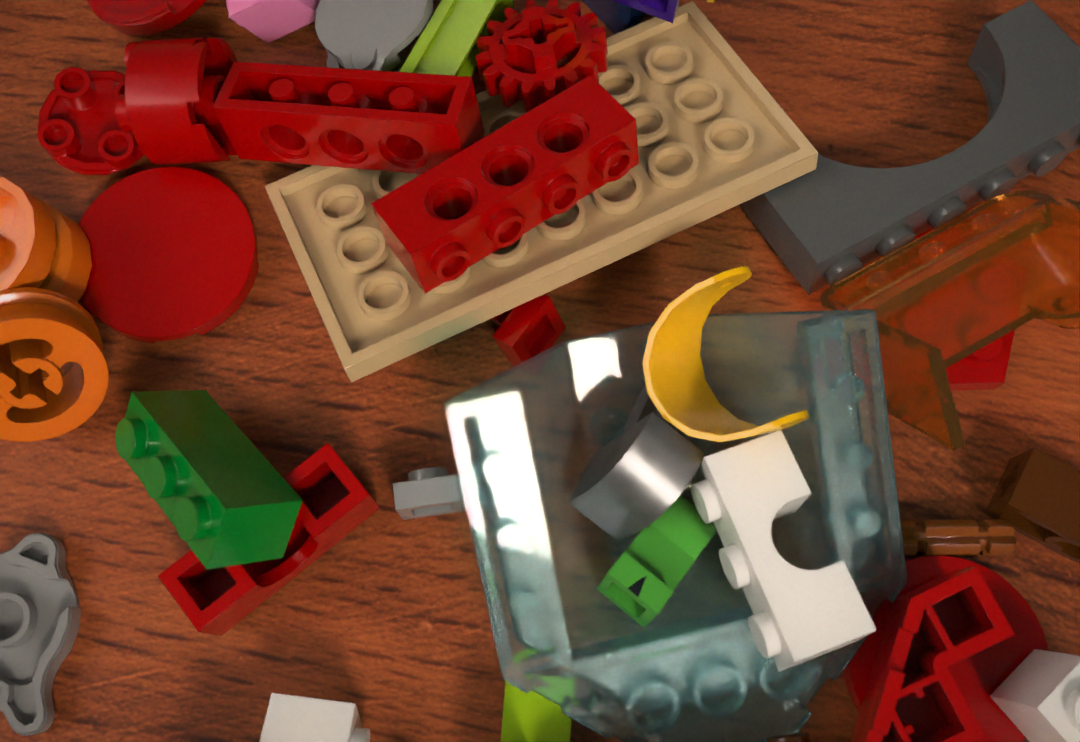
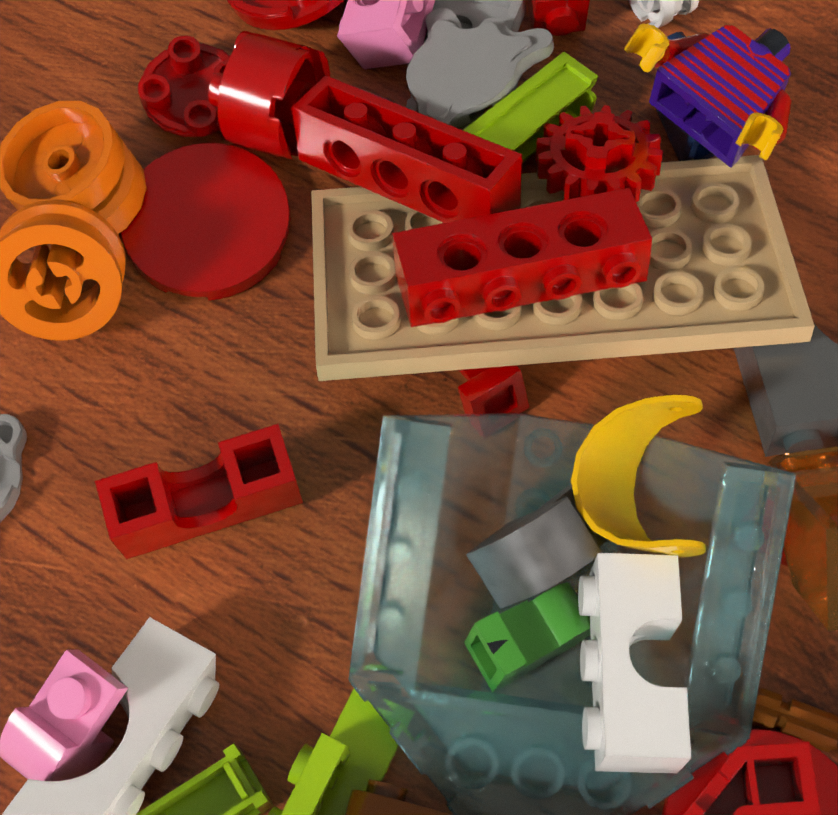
camera: 25 degrees right, 5 degrees down
(207, 477) = (167, 415): green brick -> none
(428, 494) = (344, 504): light grey plate -> none

